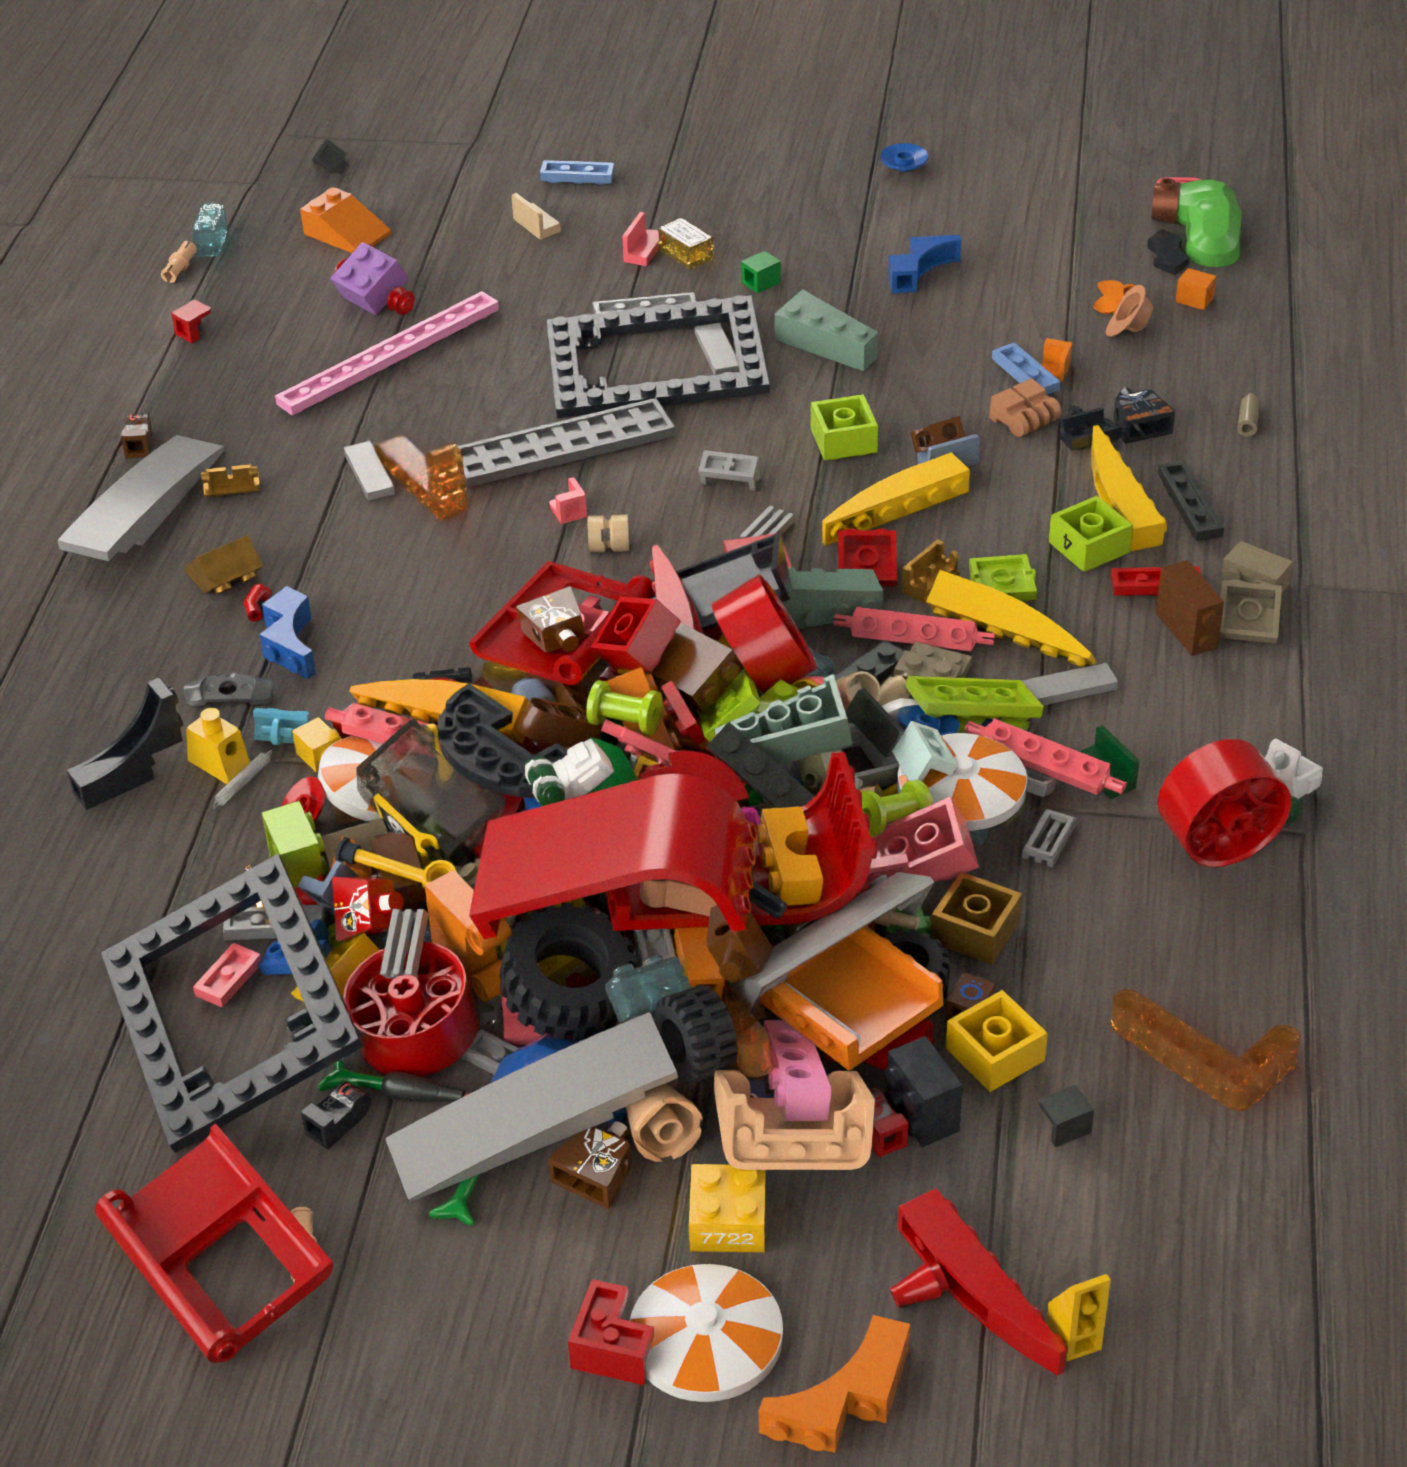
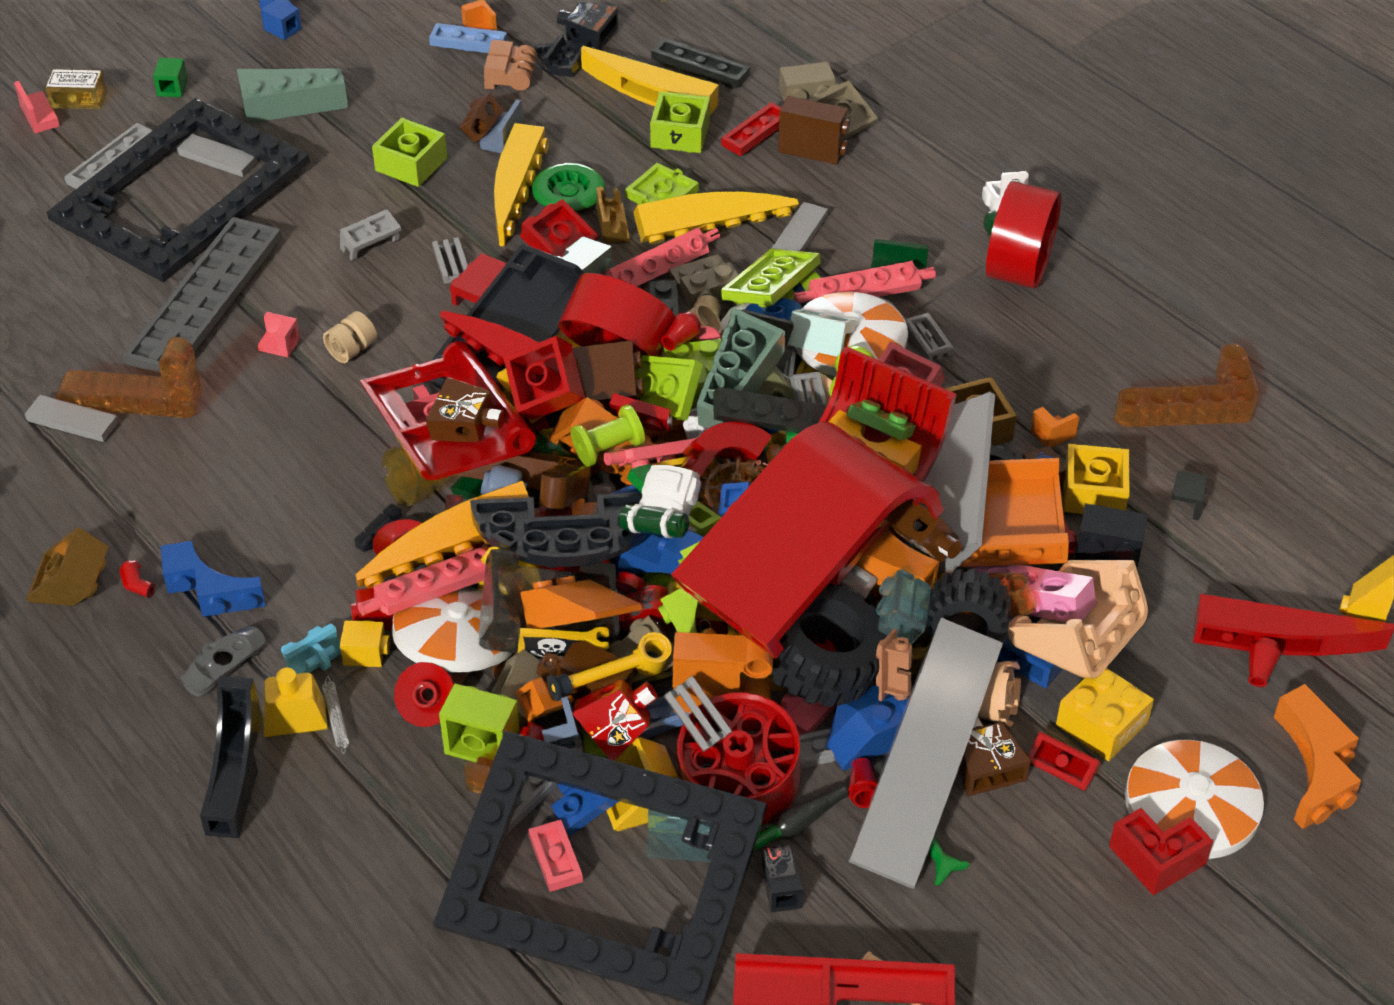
camera: 50 degrees left, 5 degrees up
(433, 803) = (572, 602): none -> orange slope
(577, 1016) = (893, 655): none -> nougat hinge
(653, 1218) = (1063, 761): none -> red slope
(798, 674) = (683, 328): none -> red cone
(818, 837) = (891, 424): none -> bright green plate
(925, 524) = (570, 182): none -> green wheel
(1036, 983) = (1053, 430): none -> orange panel

